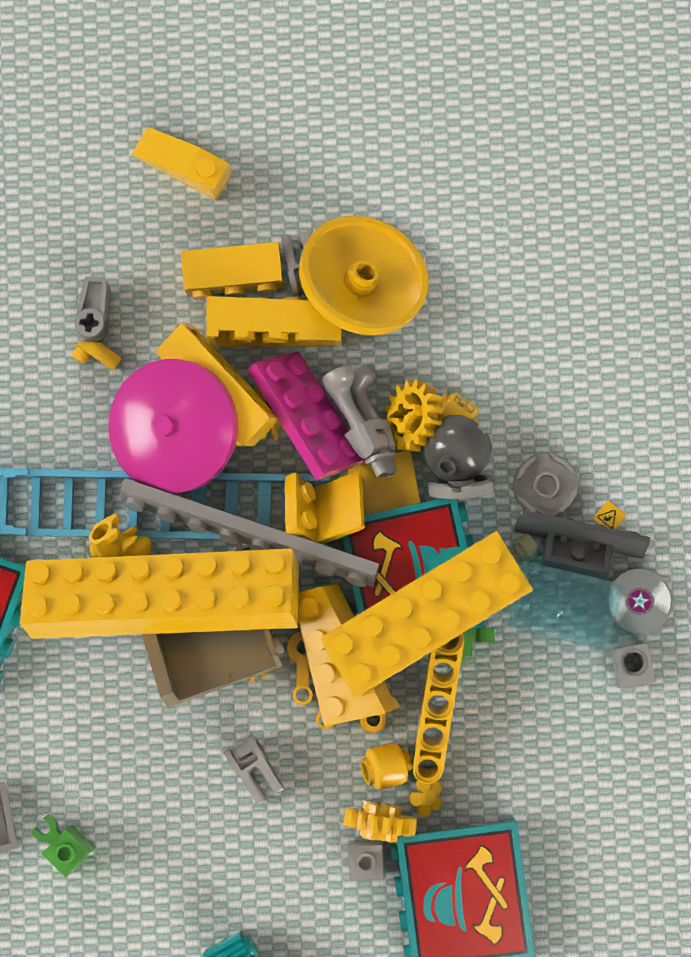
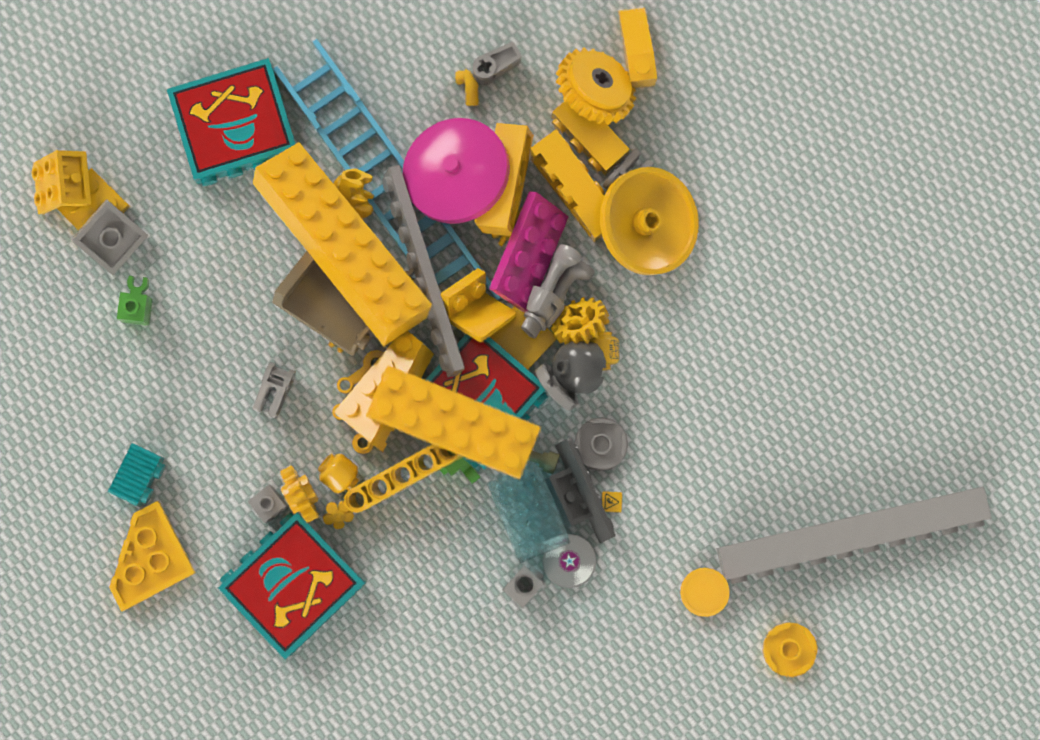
camera: 45 degrees right, 0 degrees up
(191, 228) = (595, 86): none -> yellow gear

